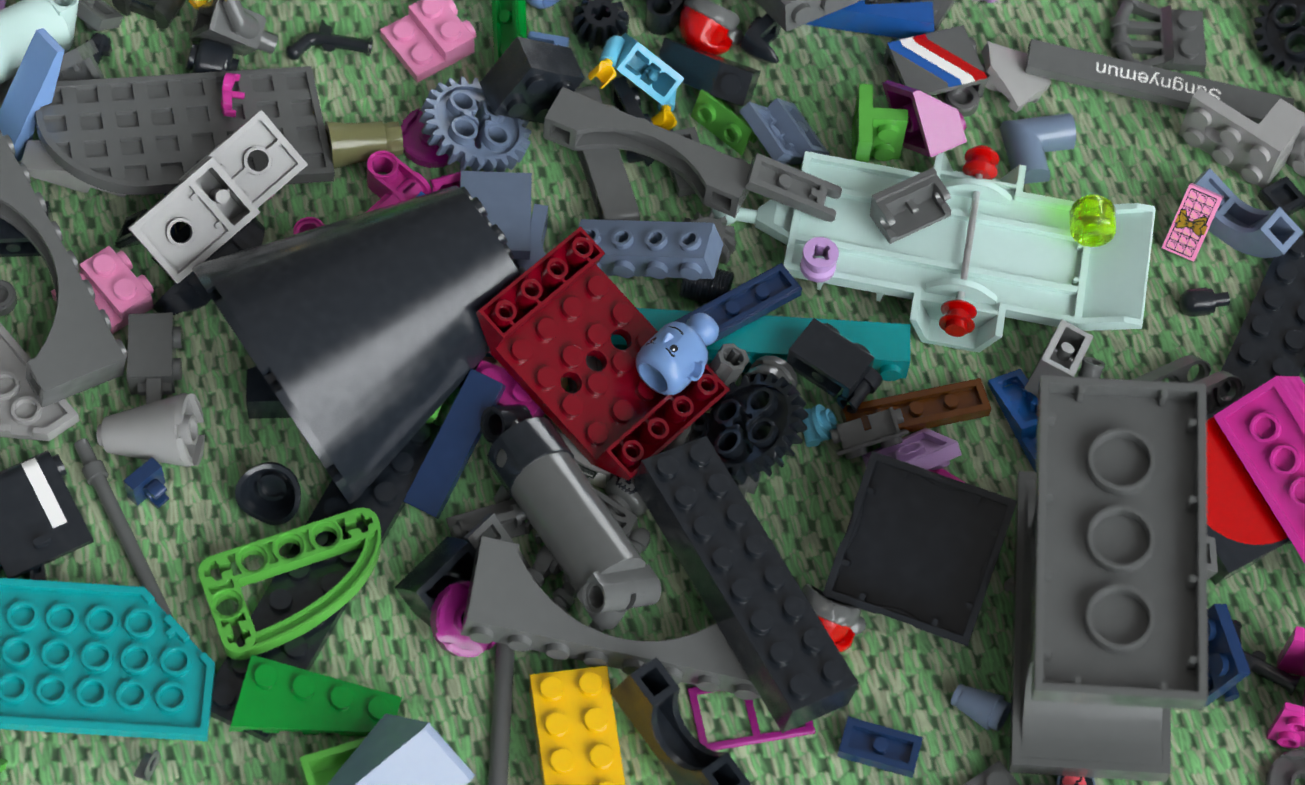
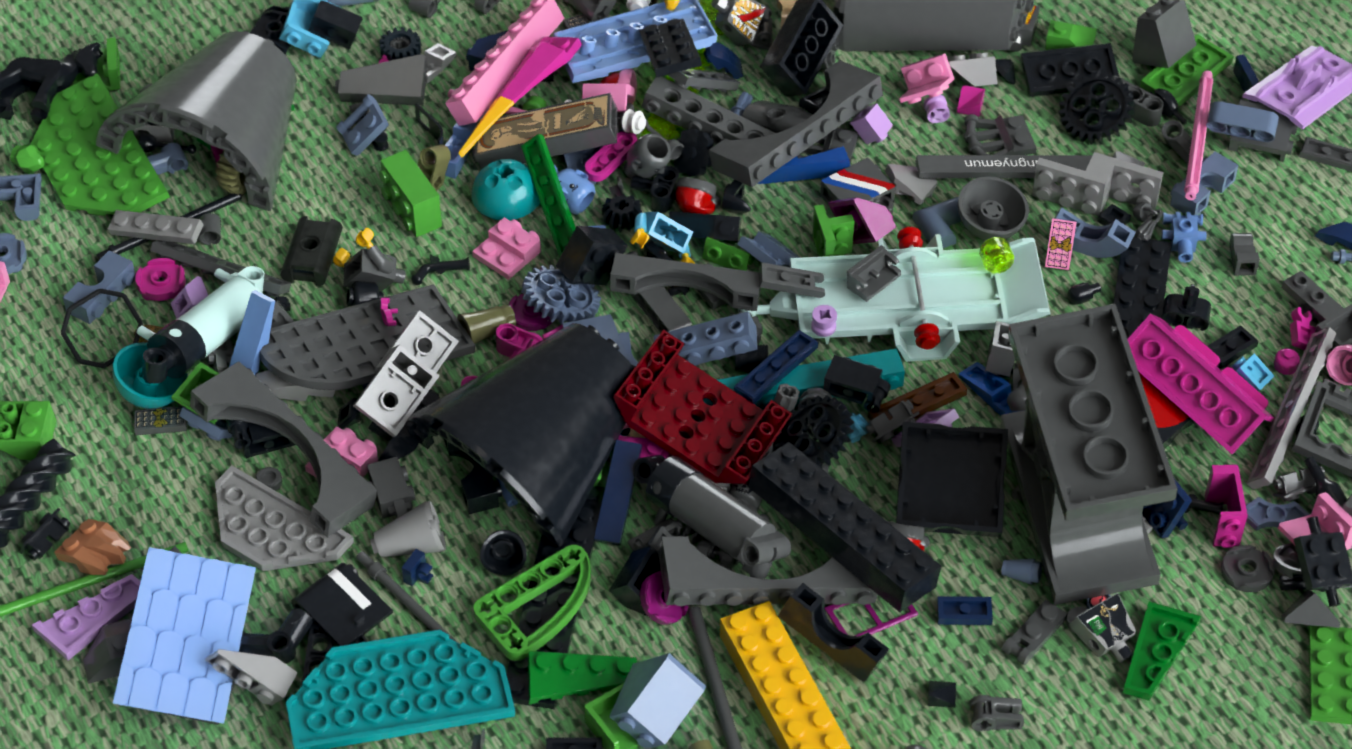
camera: 10 degrees left, 10 degrees down
(677, 354) = (751, 397): medium blue piece -> none
(1112, 145) = (992, 208): none -> dark grey piece

